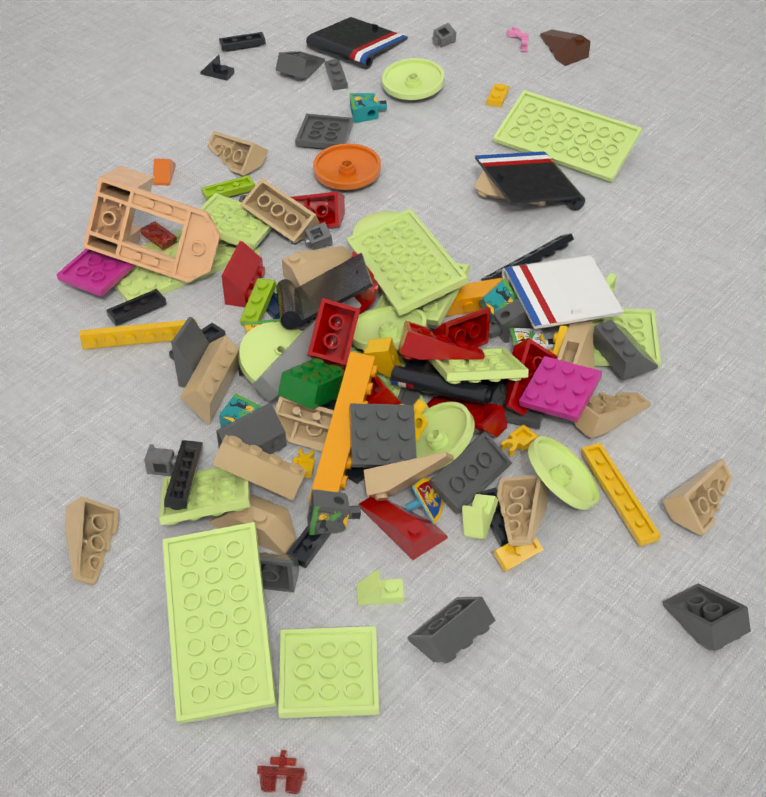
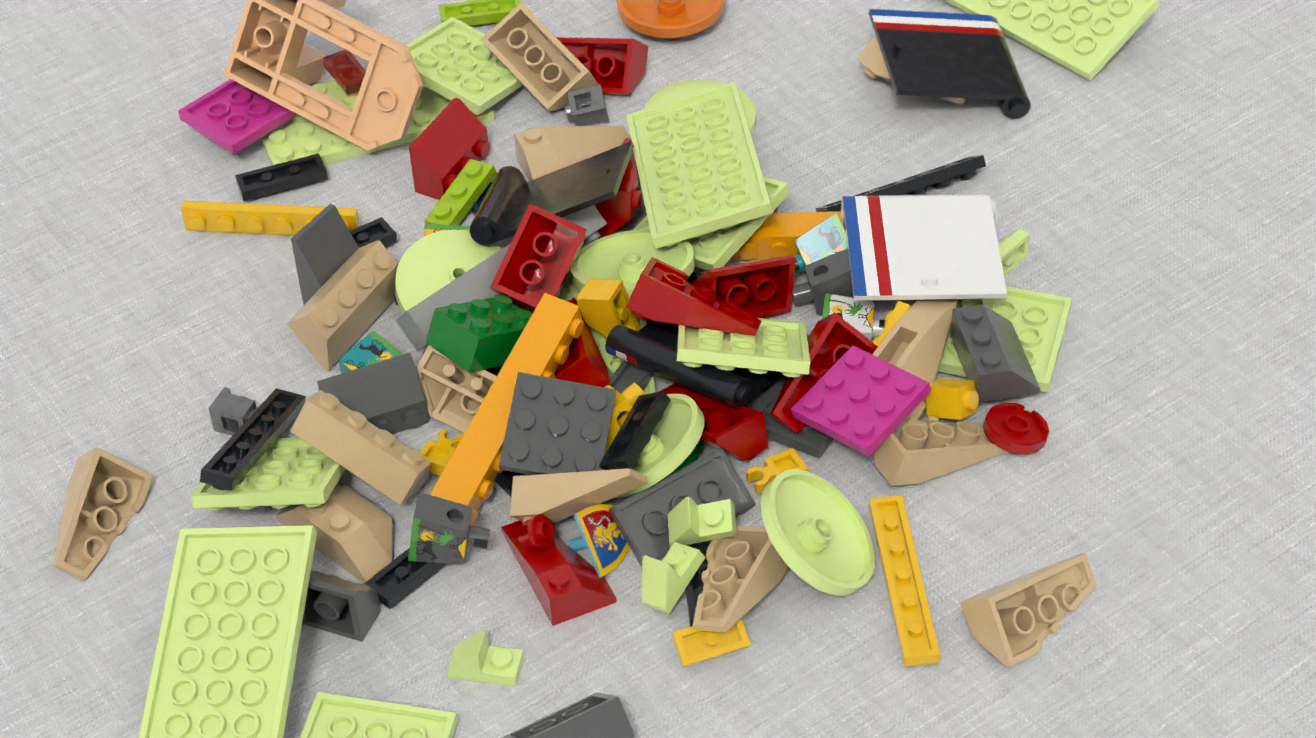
camera: 15 degrees right, 0 degrees up
(390, 502) = (539, 534): none -> red plate
(430, 430) = (635, 431): none -> black plate
(487, 480) = (701, 523): none -> yellowish green slope
(612, 380) = (952, 399): none -> yellow brick
(650, 392) = (1015, 428): none -> red tile

